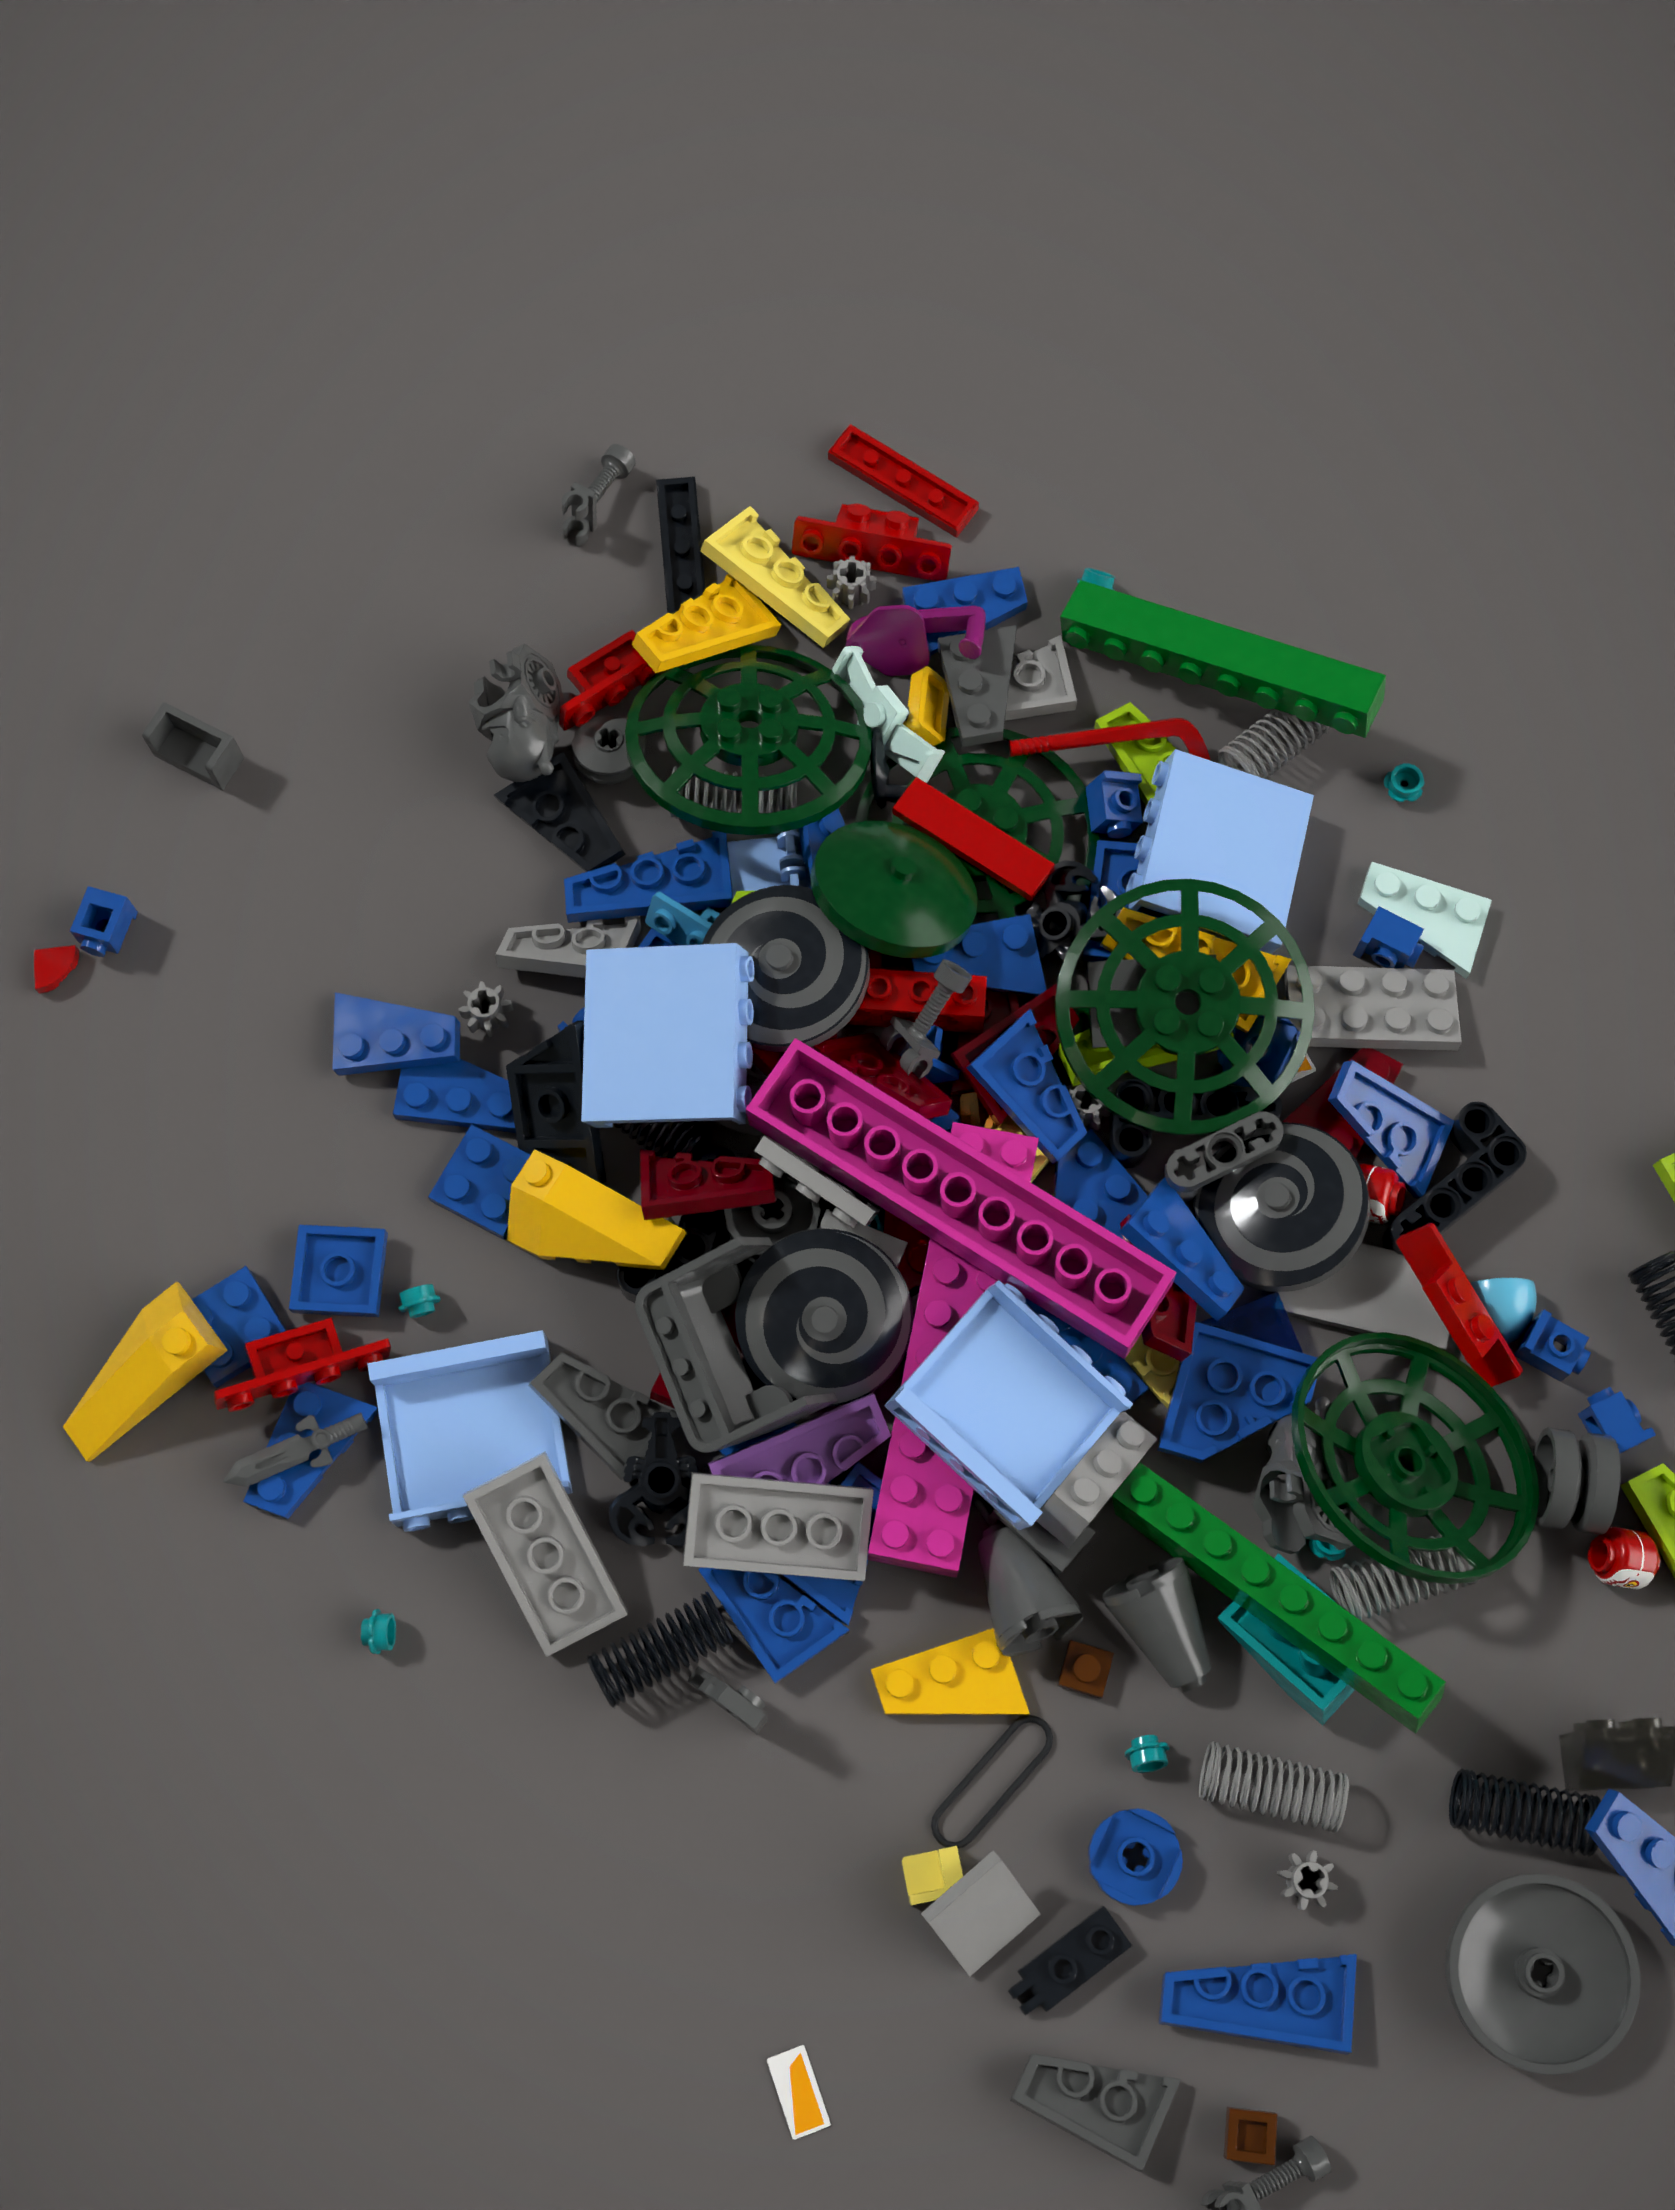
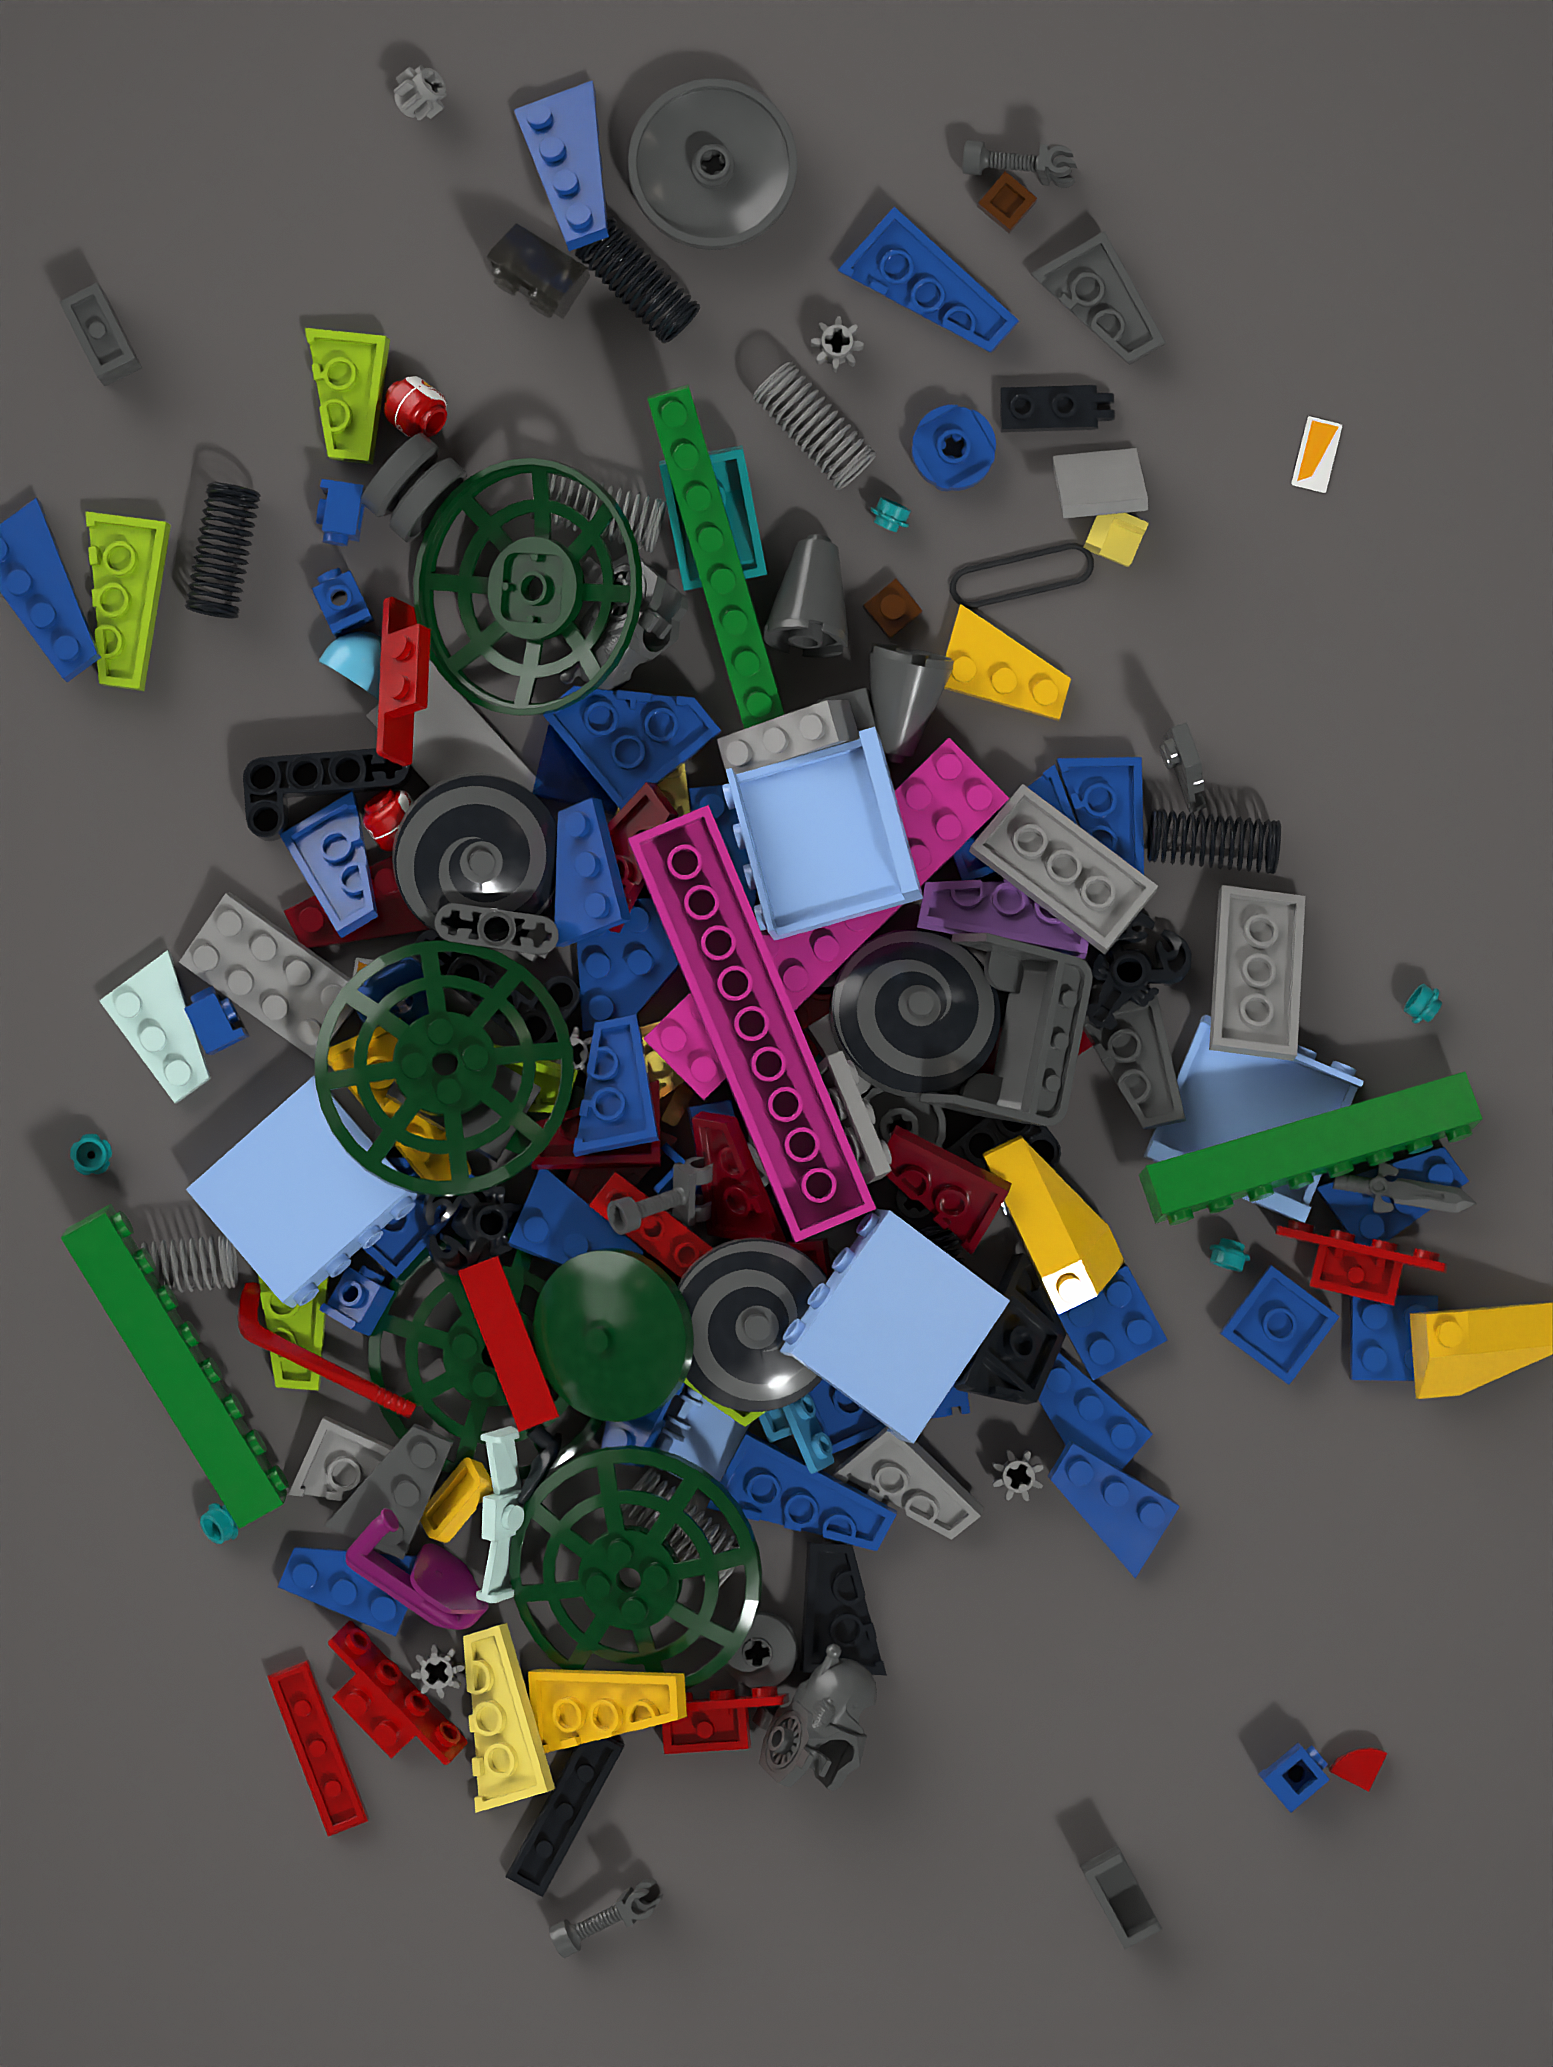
camera: 150 degrees left, 15 degrees up
(399, 1430) = (1310, 1148): none -> green brick

